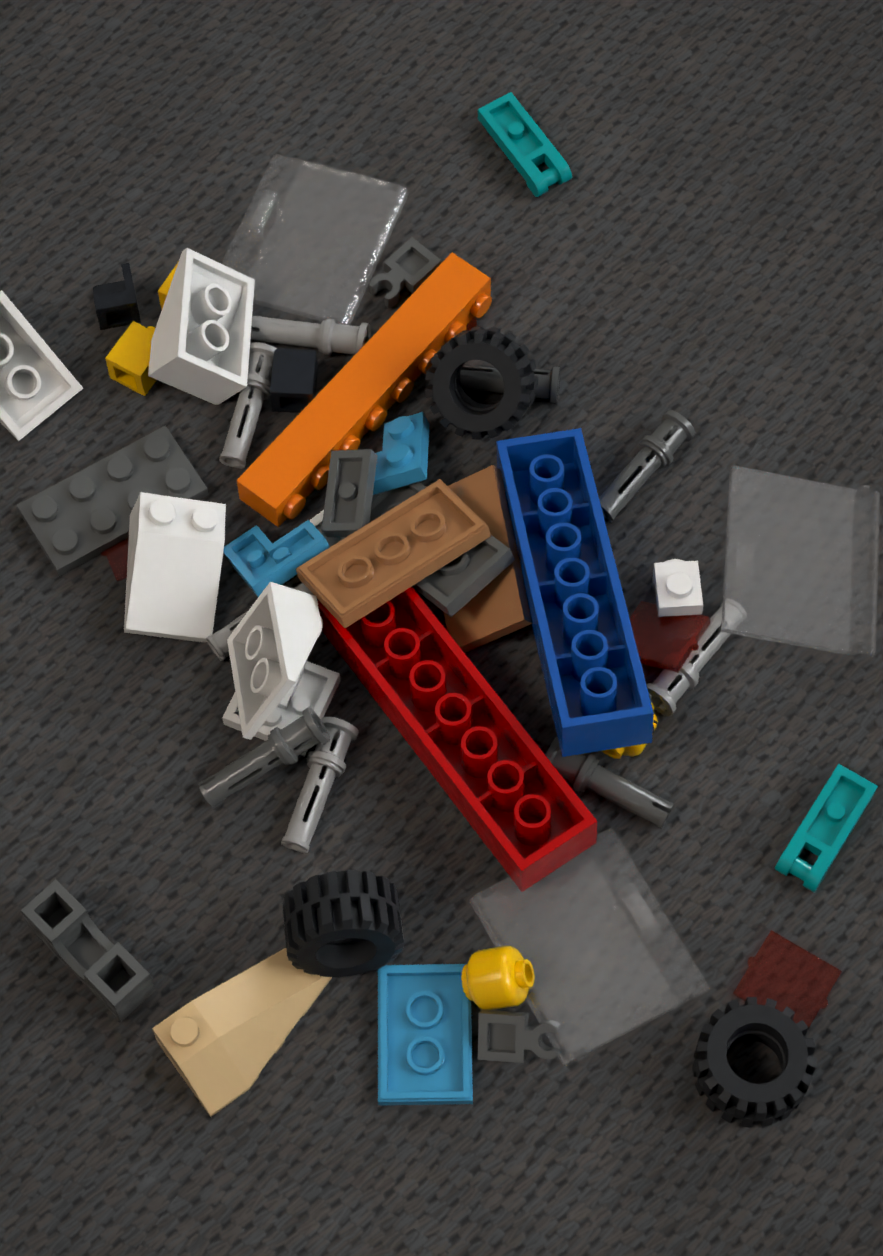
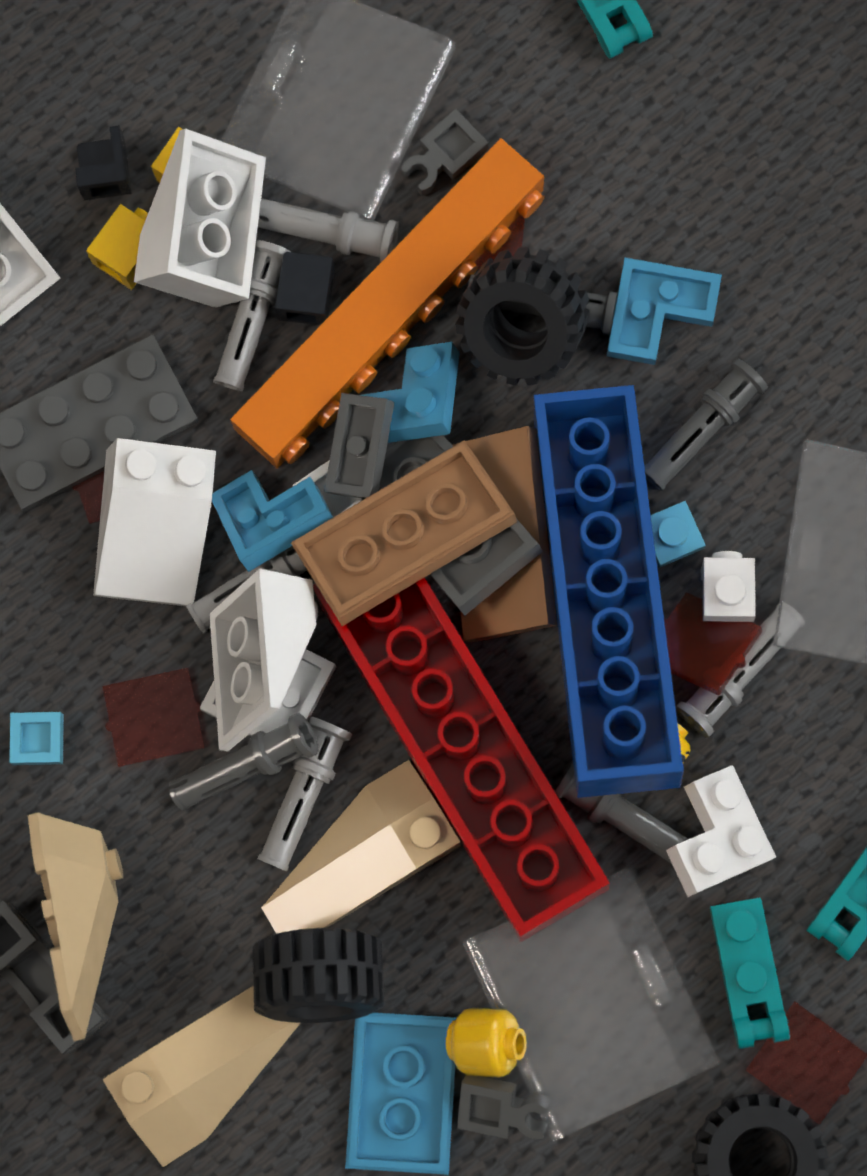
camera: 10 degrees right, 15 degrees up
(78, 754) = (36, 738): none -> medium azure plate
(125, 878) = (79, 908): none -> tan wedge
(181, 733) = (153, 717): none -> clear red piece
(387, 822) = (369, 849): none -> tan wedge
(594, 366) = (658, 292): none -> dark azure plate
(630, 553) = (675, 534): none -> medium azure plate
(697, 794) = (731, 837): none -> white plate
(727, 906) = (749, 971): none -> teal plate

